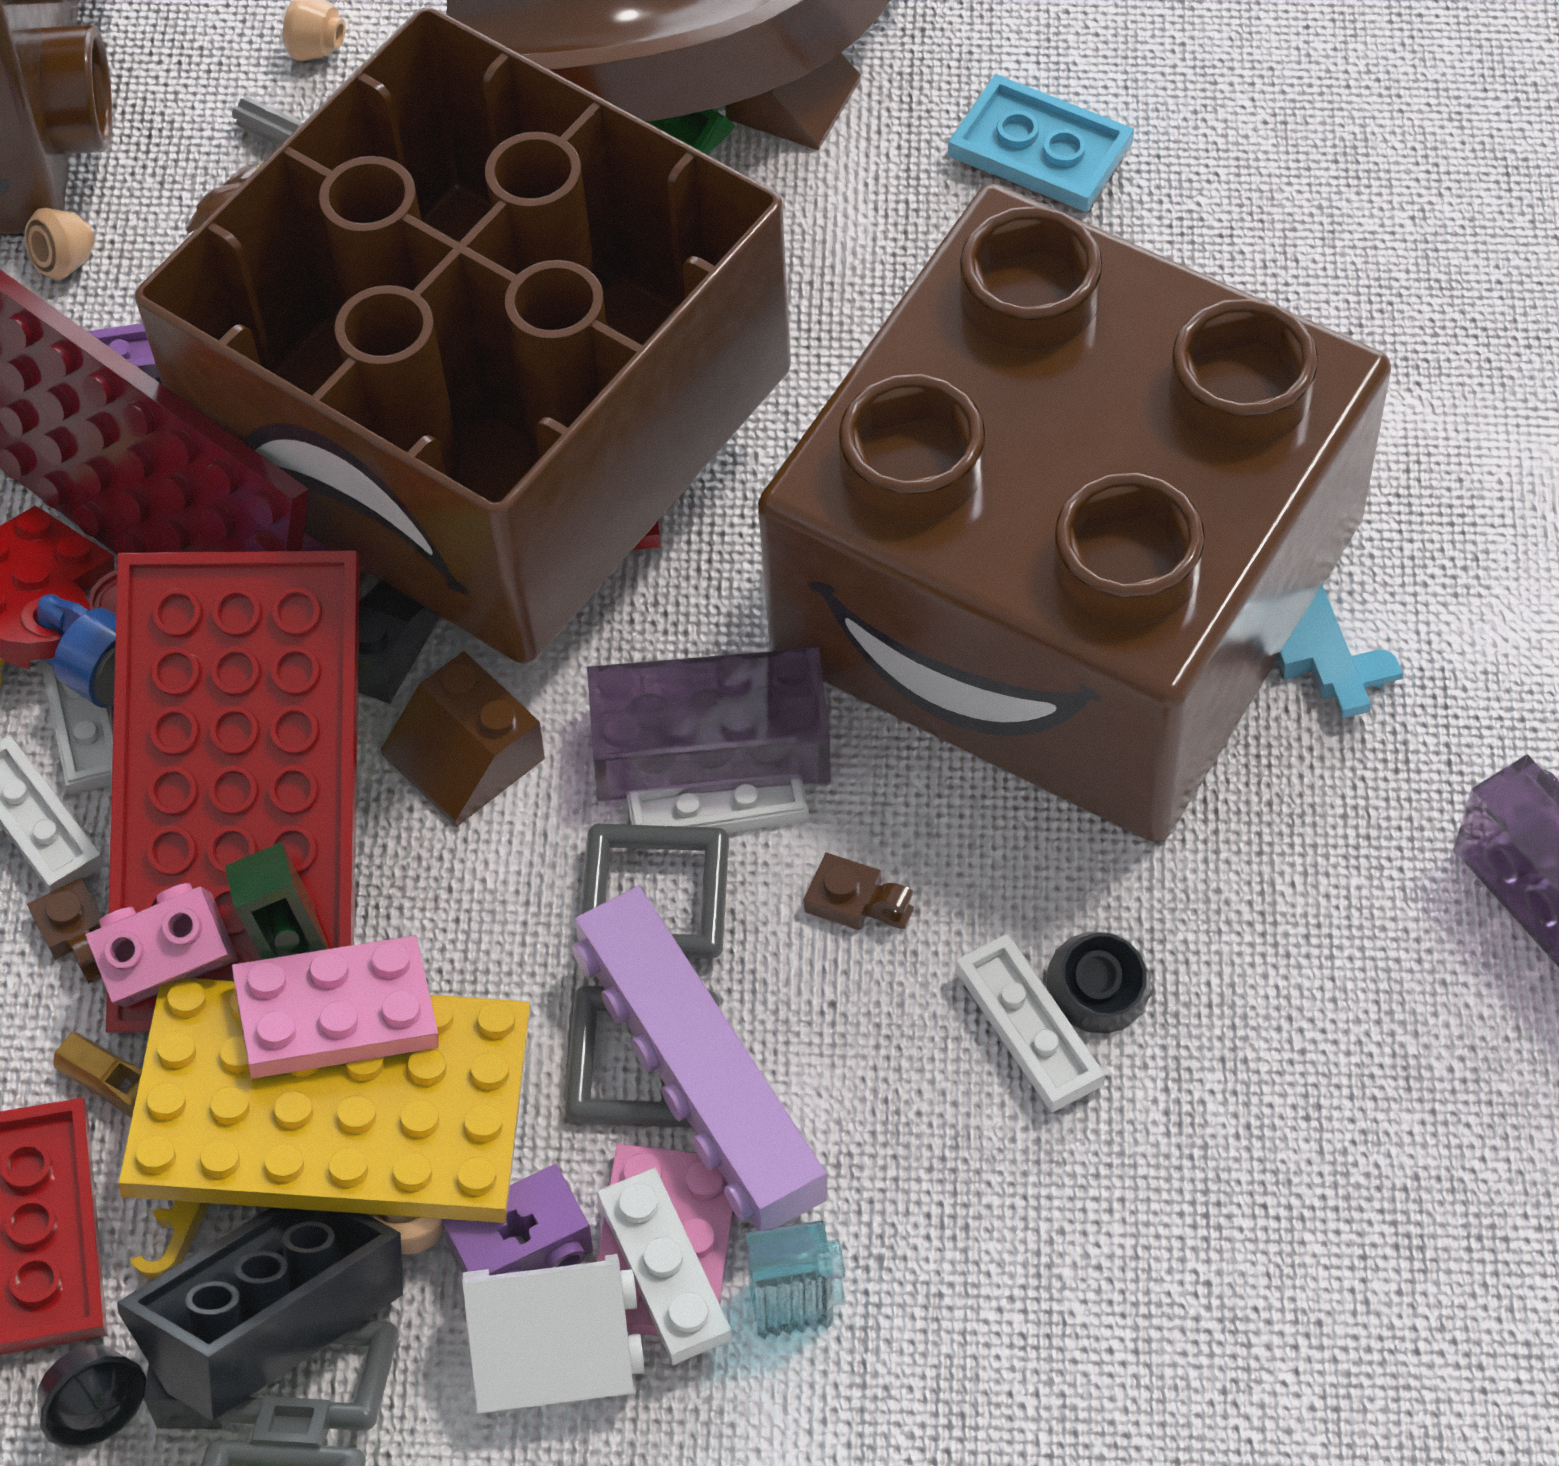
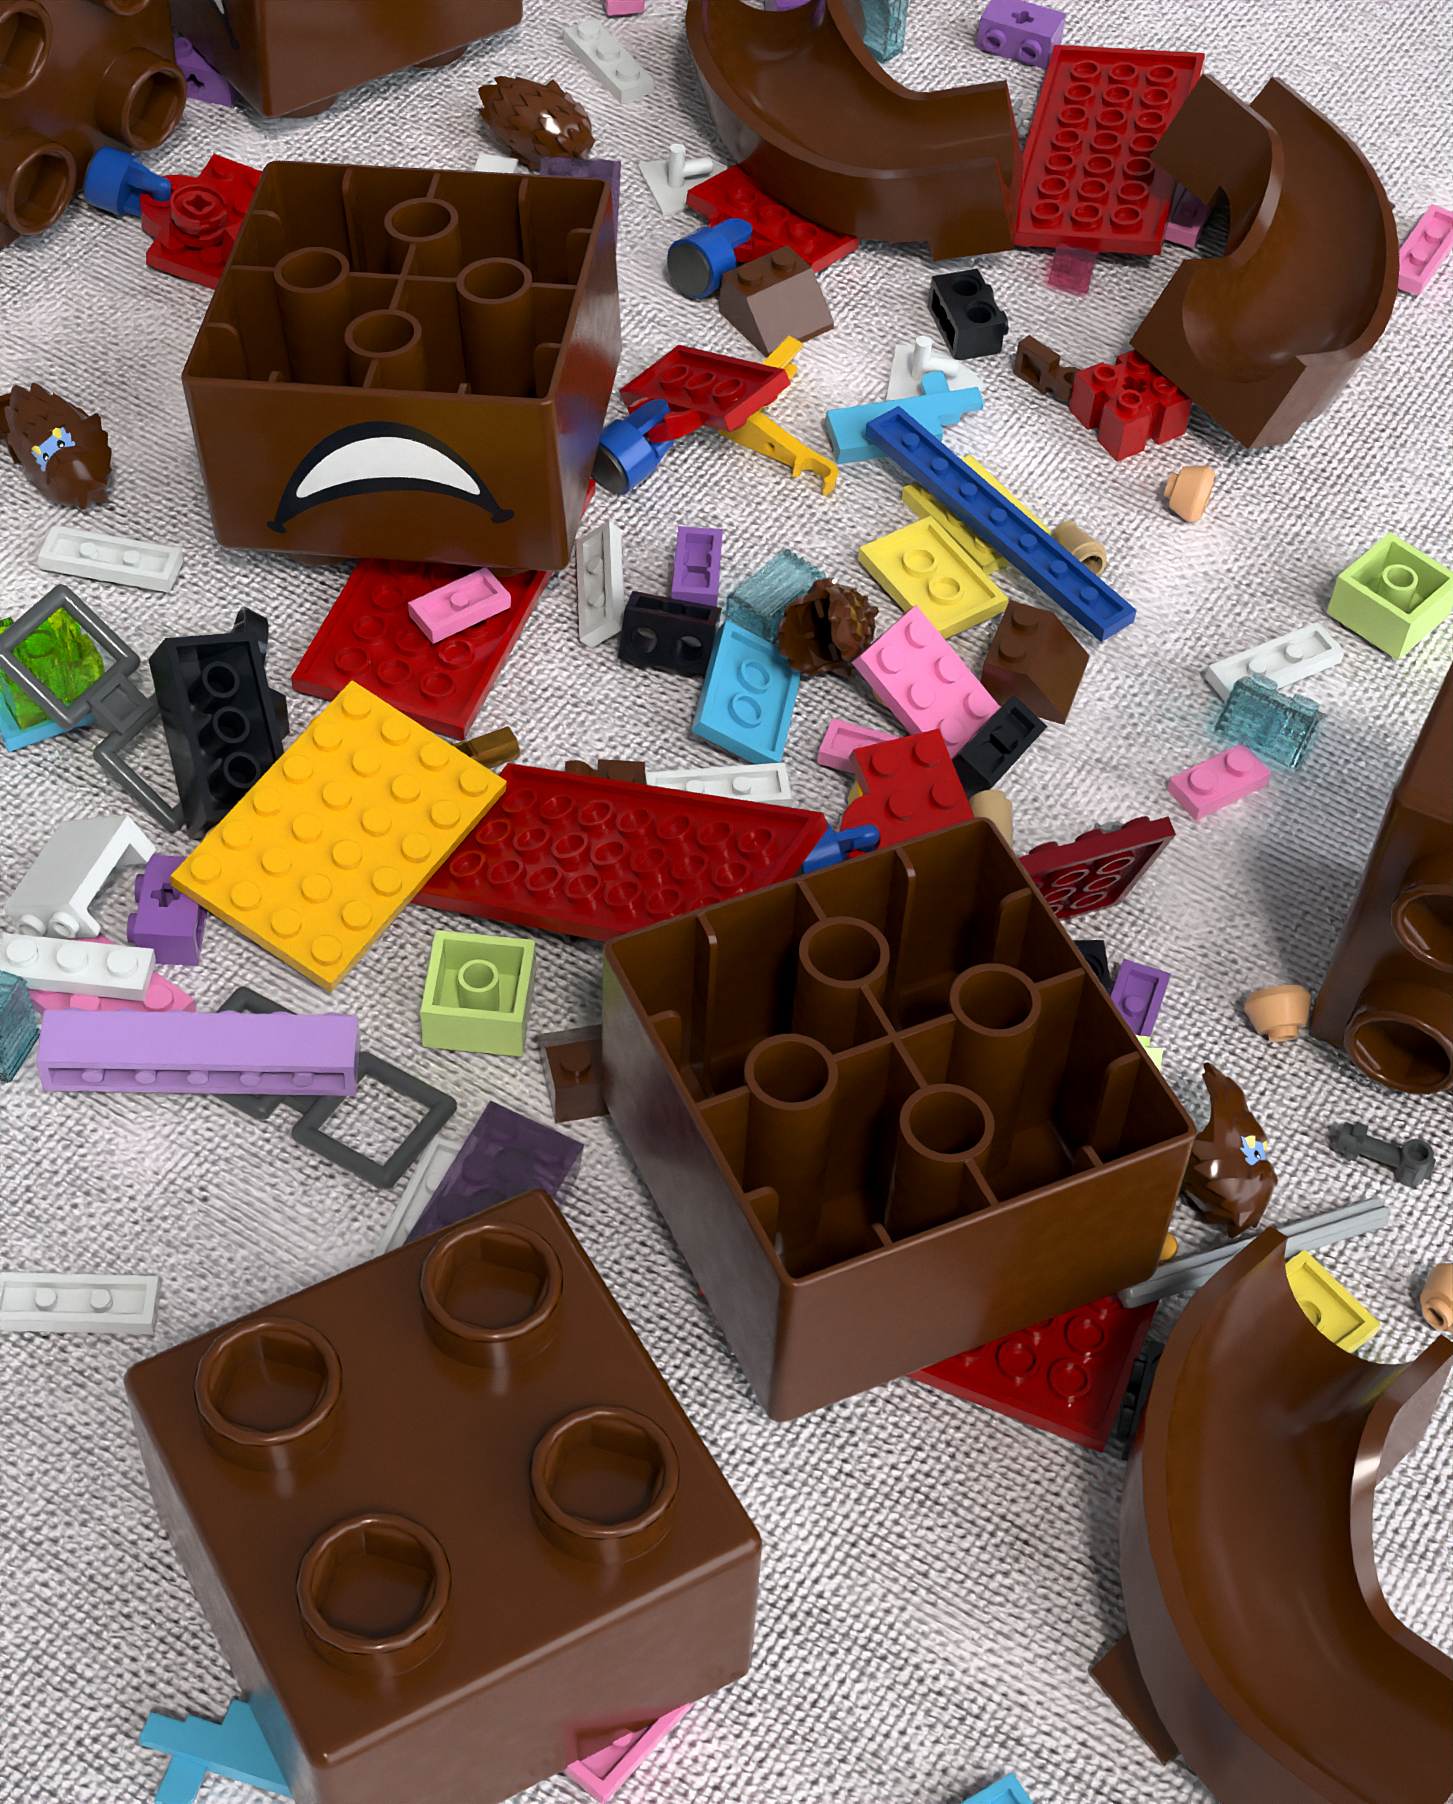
camera: 115 degrees right, 5 degrees down
(160, 944) = (524, 783): bright pink brick -> none
(178, 106) = (1411, 1163): none -> dark grey bar
(274, 904) = (494, 844): dark green slope -> none
(334, 1006) = (397, 851): bright pink plate -> none
(453, 867) = (478, 993): none -> yellowish green brick
(851, 891) = (277, 1251): reddish brown plate -> none
(1089, 966) = (88, 1369): black hat -> none

